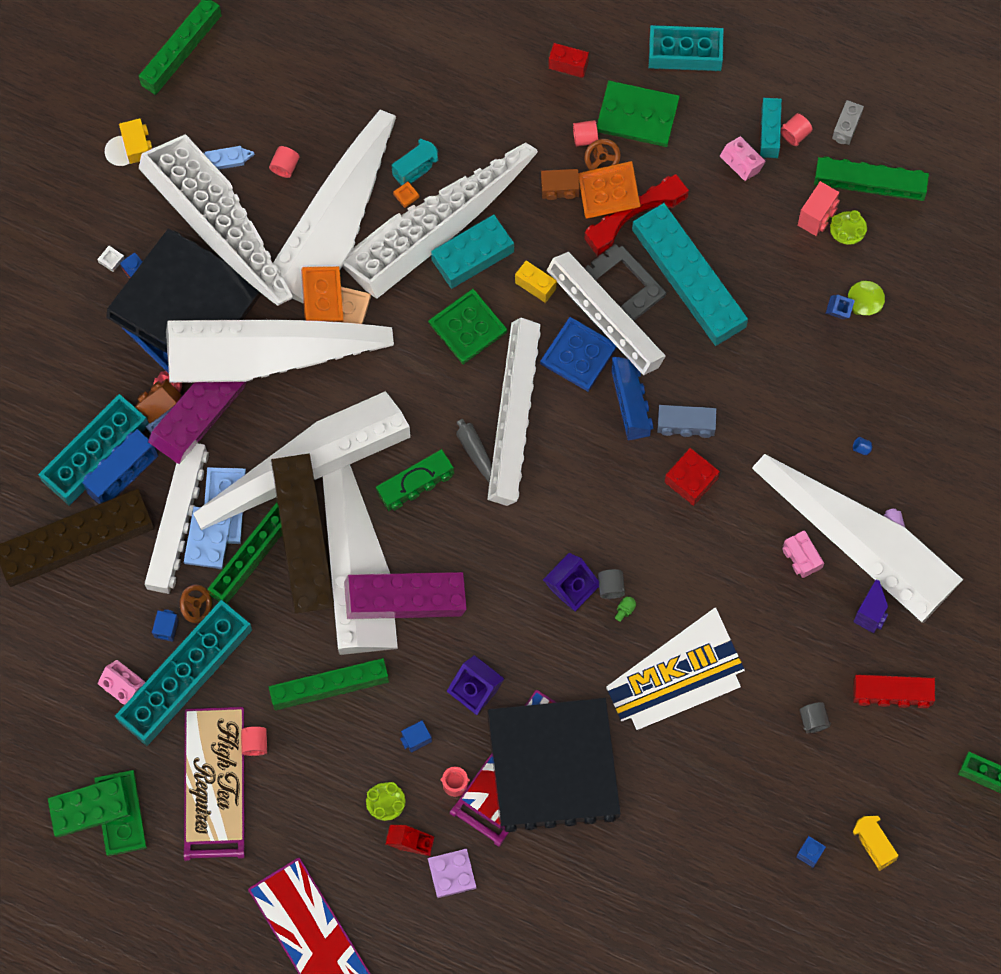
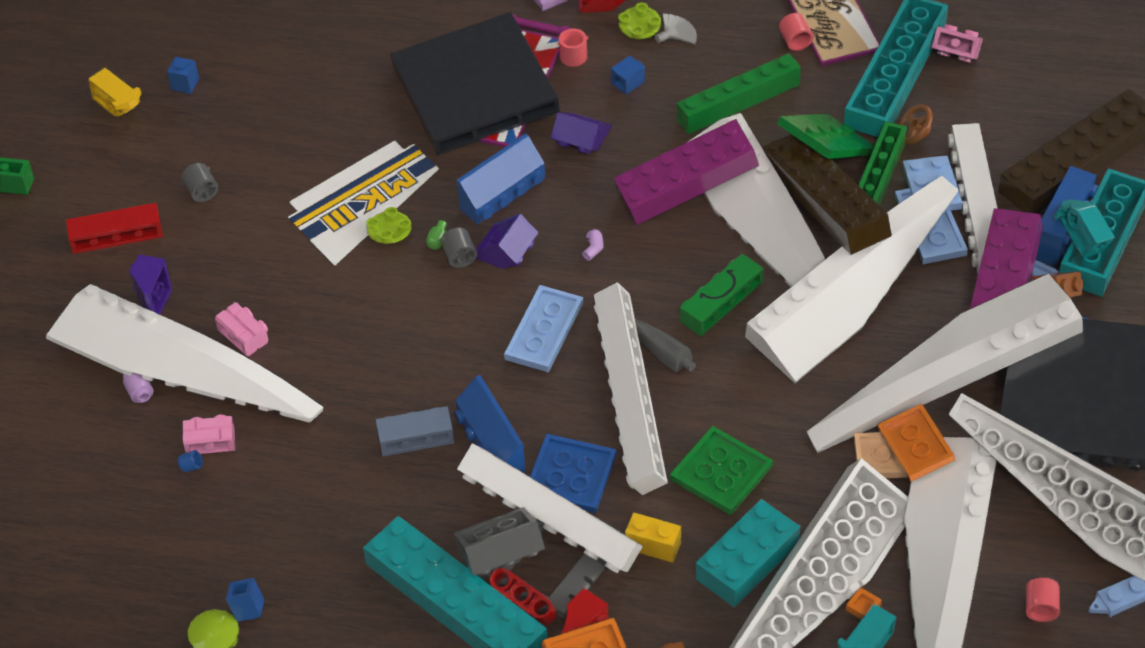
camera: 165 degrees right, 20 degrees down
(117, 428) = (1085, 226): none -> teal piece
(165, 625) = (939, 101): blue brick -> none
(276, 599) = (826, 135): none -> green plate
(354, 787) = (677, 29): none -> light grey hand
(497, 563) = (596, 244): none -> lavender arm
(559, 641) = (500, 179): none -> slope
(563, 489) = (543, 328): none -> light blue plate
(641, 256) = (515, 588): none -> red beam
(650, 288) = (499, 541): none -> dark grey brick
(662, 629) = (388, 226): none -> lime dish
(692, 476) = (392, 372): red brick -> none
(844, 460) = (209, 434): none -> bright pink brick

